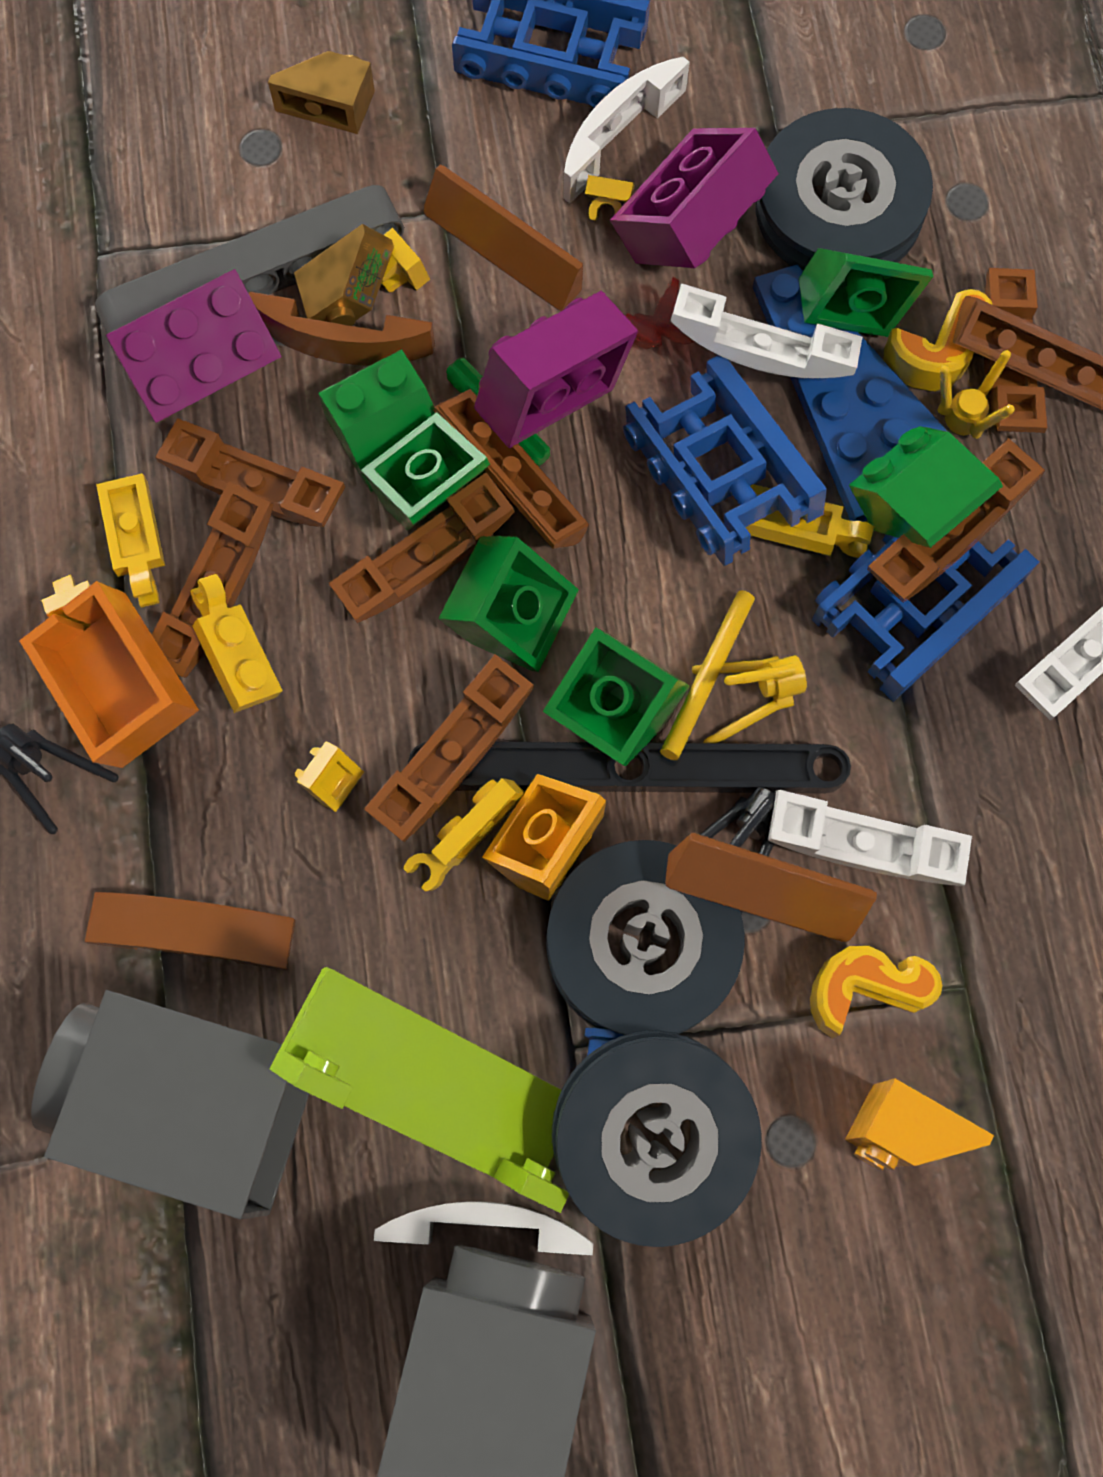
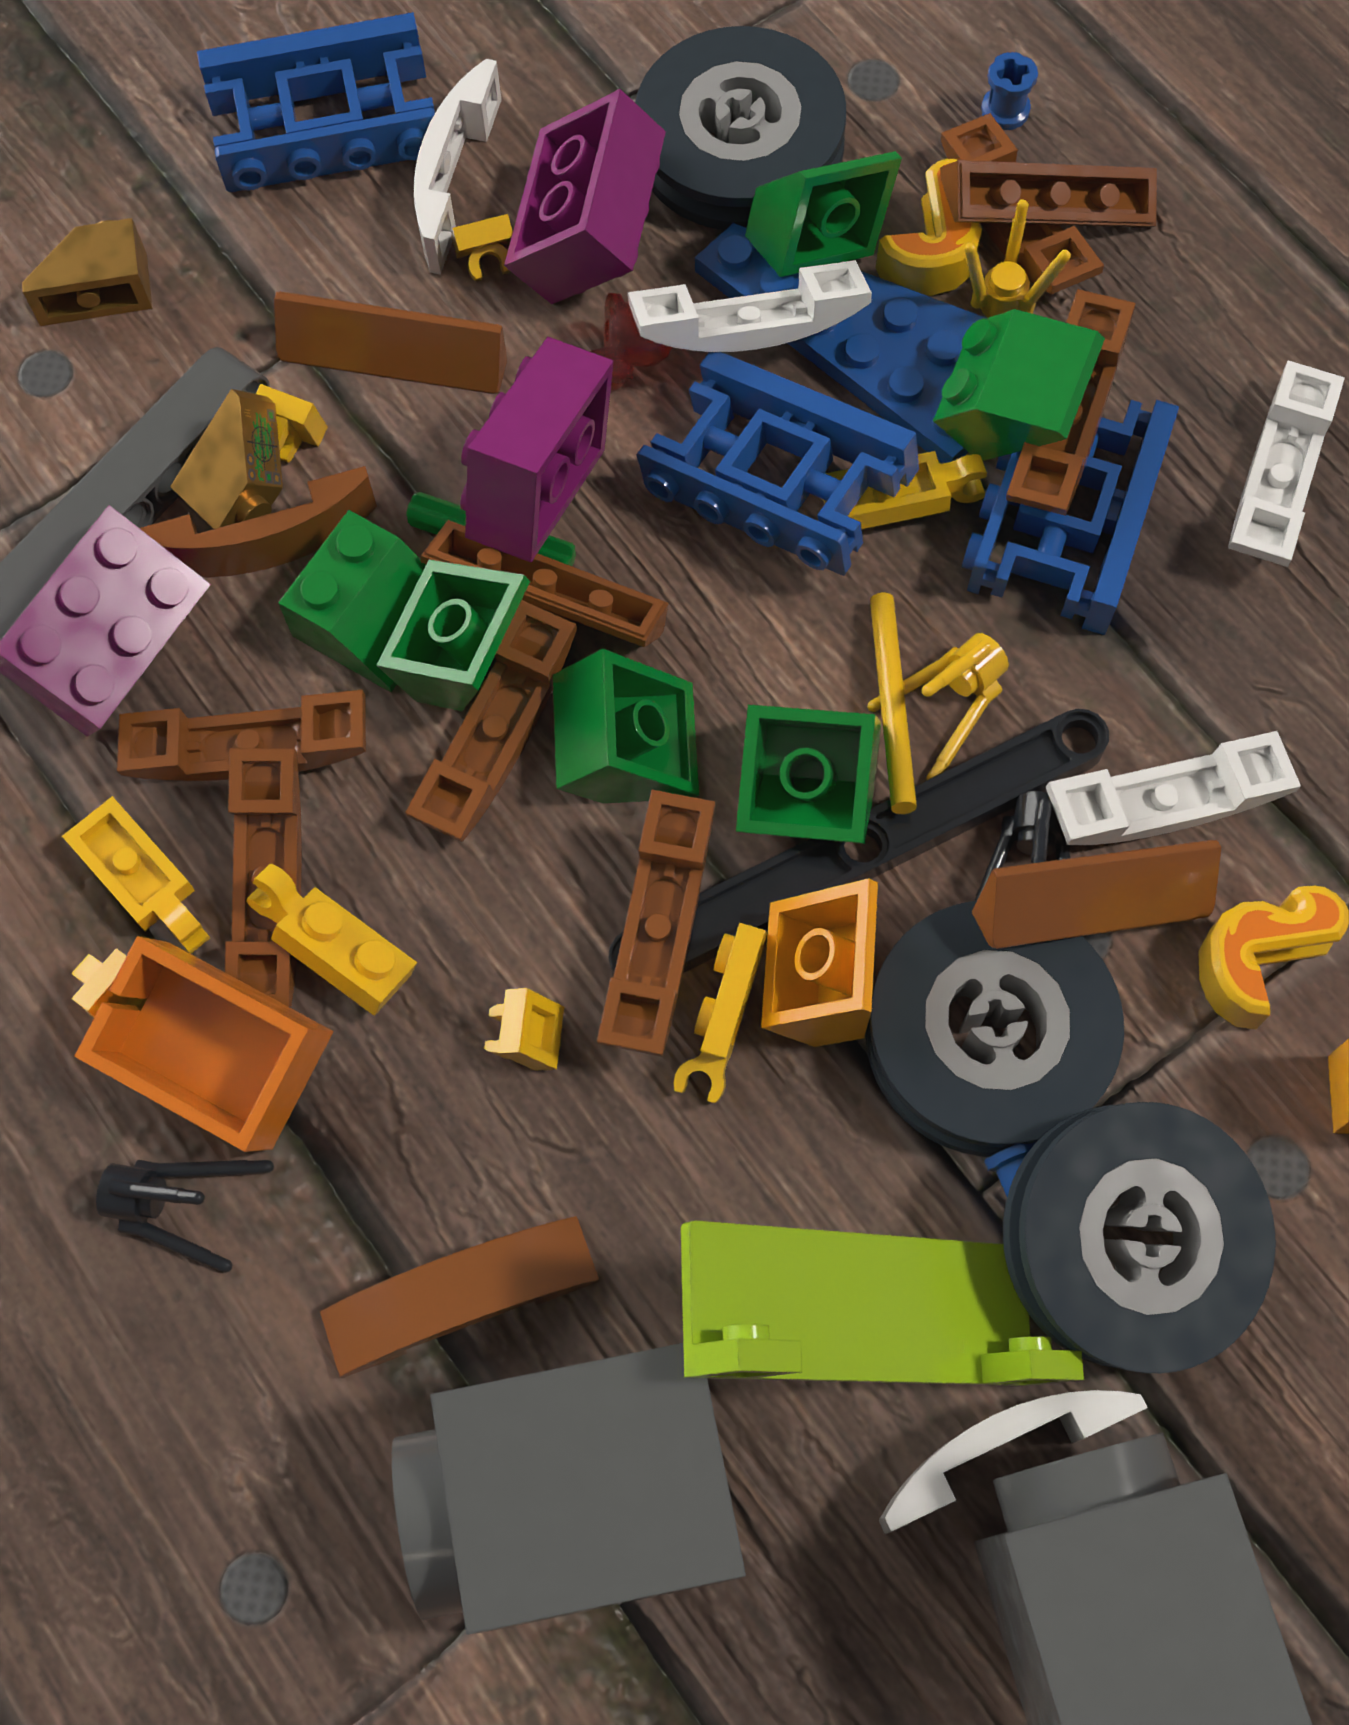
camera: 25 degrees left, 5 degrees down
(1057, 264) = (1010, 82): none -> blue bush

